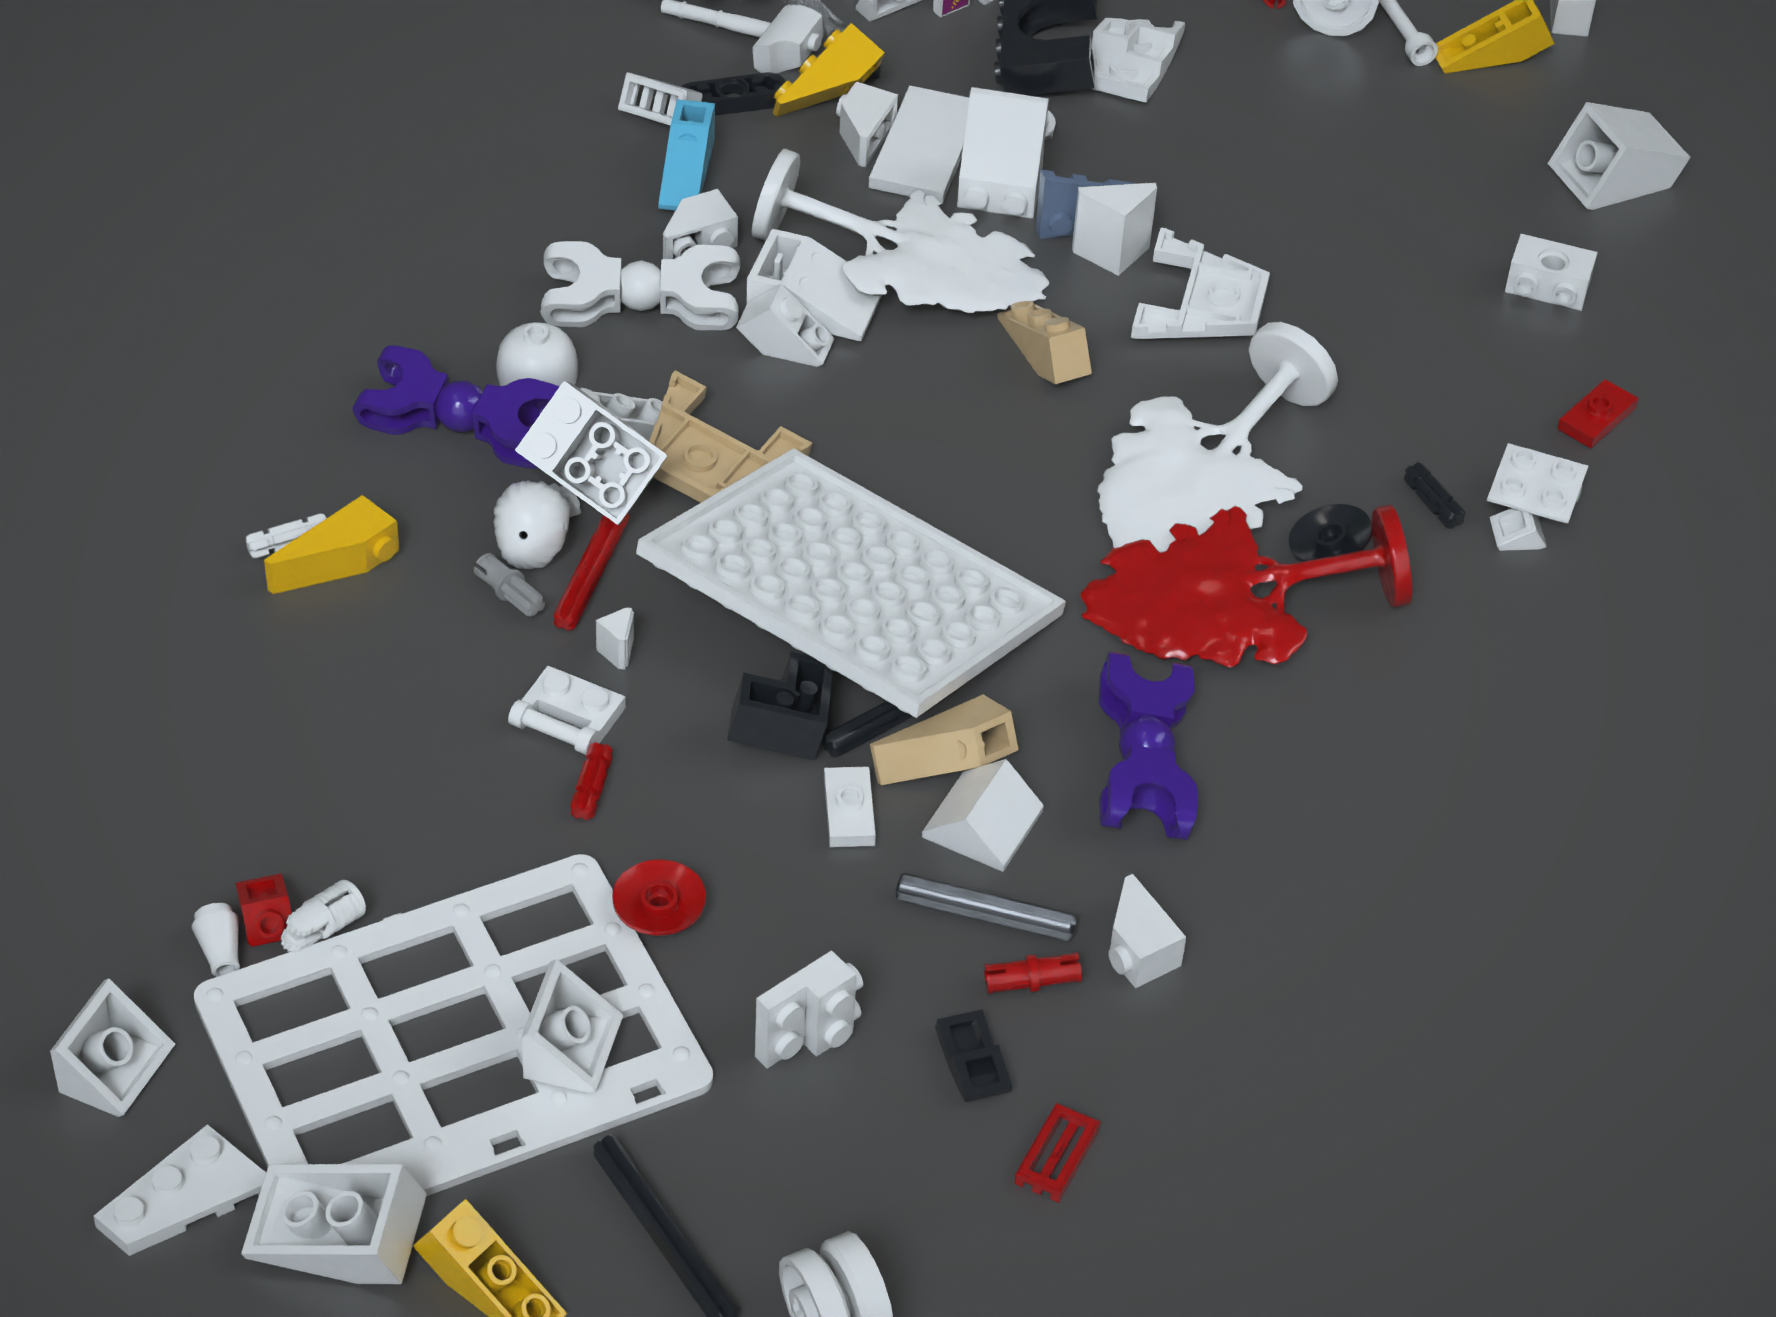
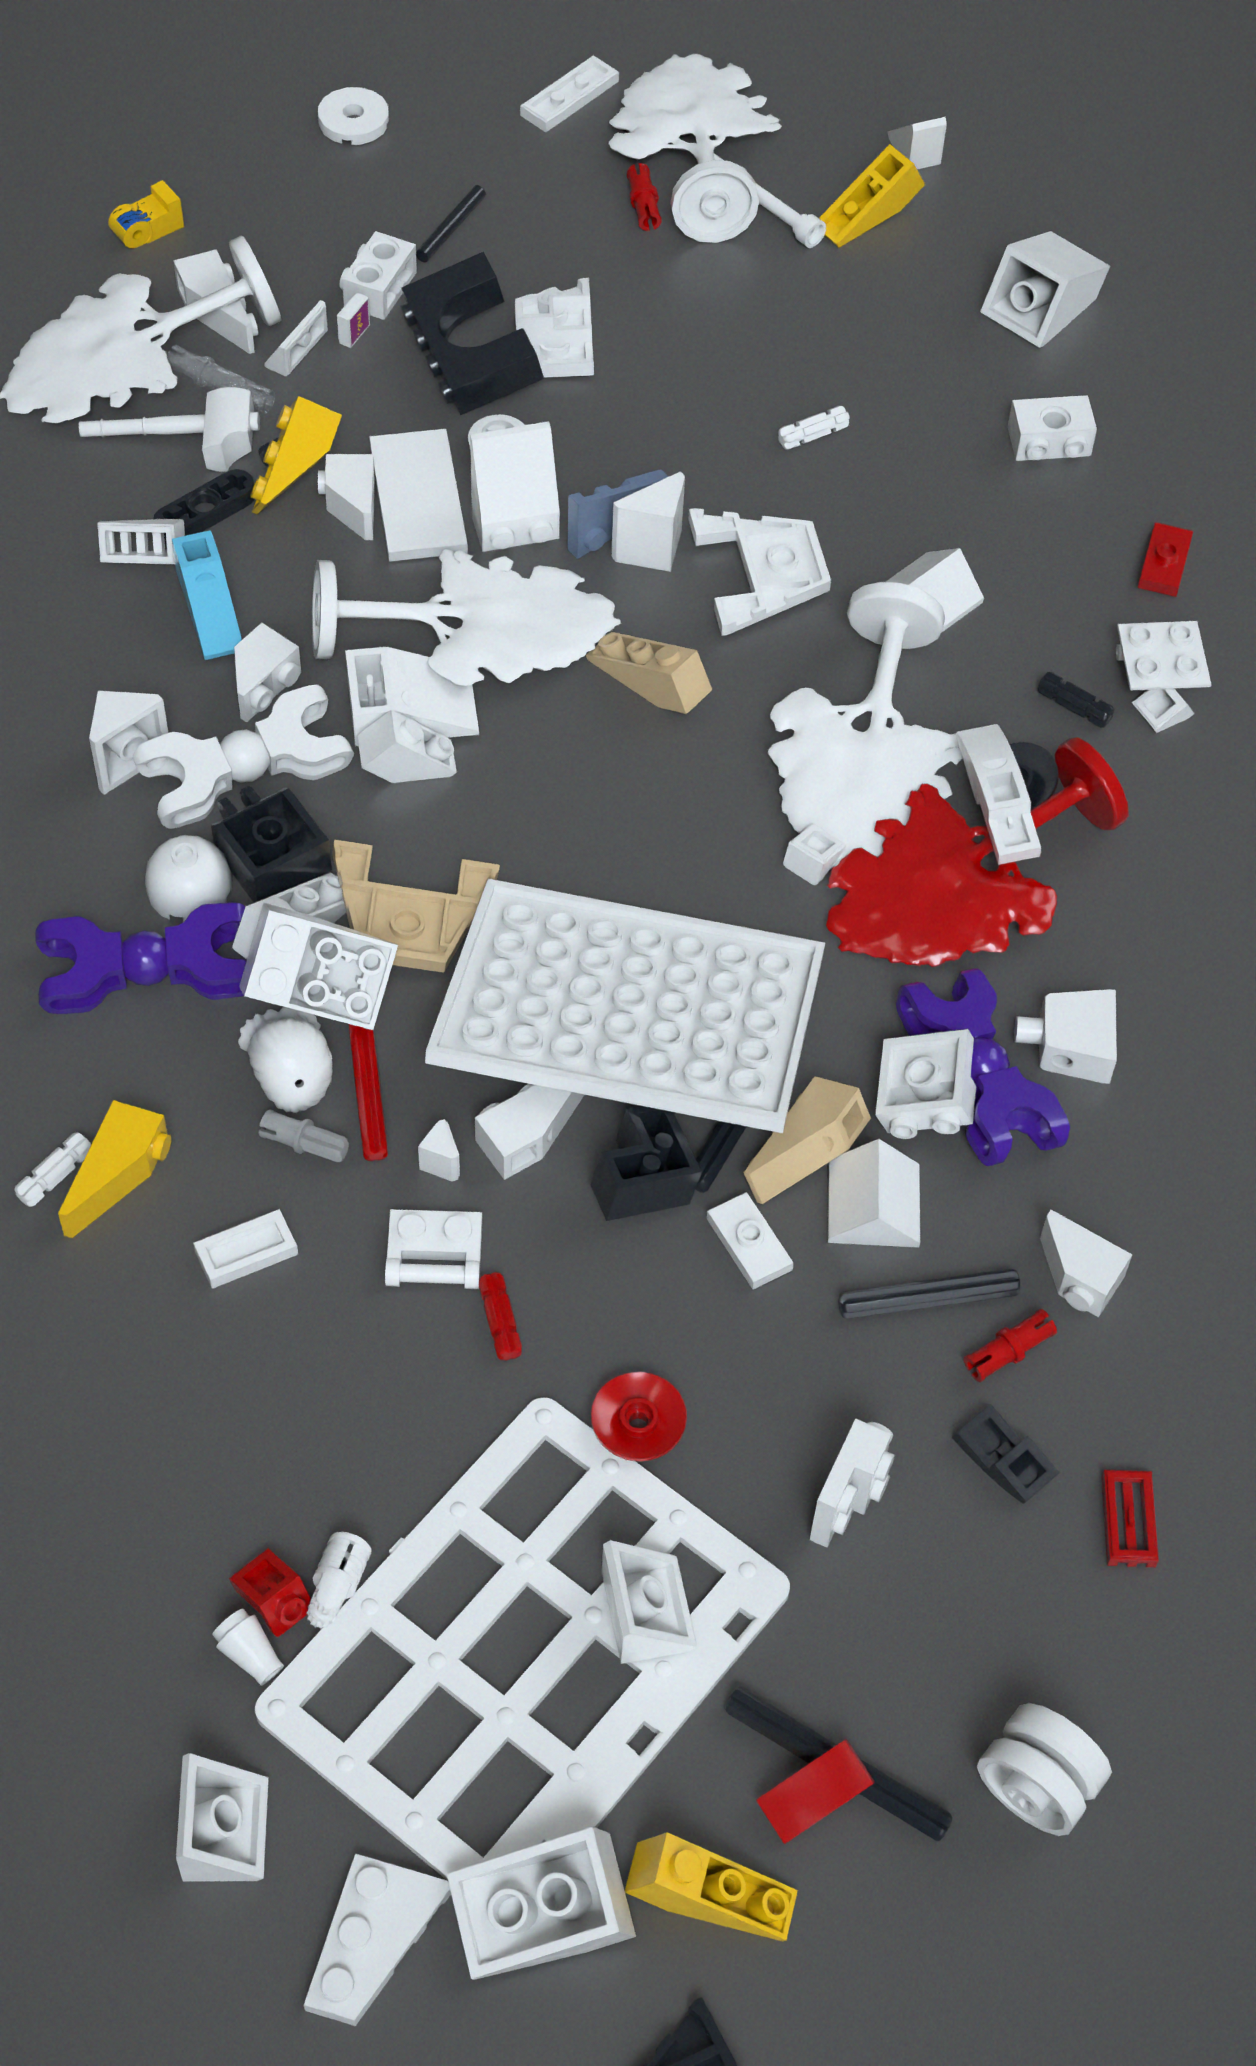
camera: 25 degrees left, 10 degrees up
(408, 652) = (245, 1248): none -> white tile
(538, 222) = (118, 728): none -> white slope
(620, 354) = (270, 843): none -> black hinge
(626, 1236) = (815, 1791): none -> red slope
(709, 644) = (523, 1127): none -> white slope
(1081, 736) = (926, 1083): none -> white plate
(1102, 531) = (813, 854): none -> white slope
(1254, 752) = (1074, 1034): none -> white torso
(1295, 533) = (1000, 792): none -> white slope
(1323, 203) = (813, 427): none -> white axle
(1363, 368) = (947, 579): none -> white slope

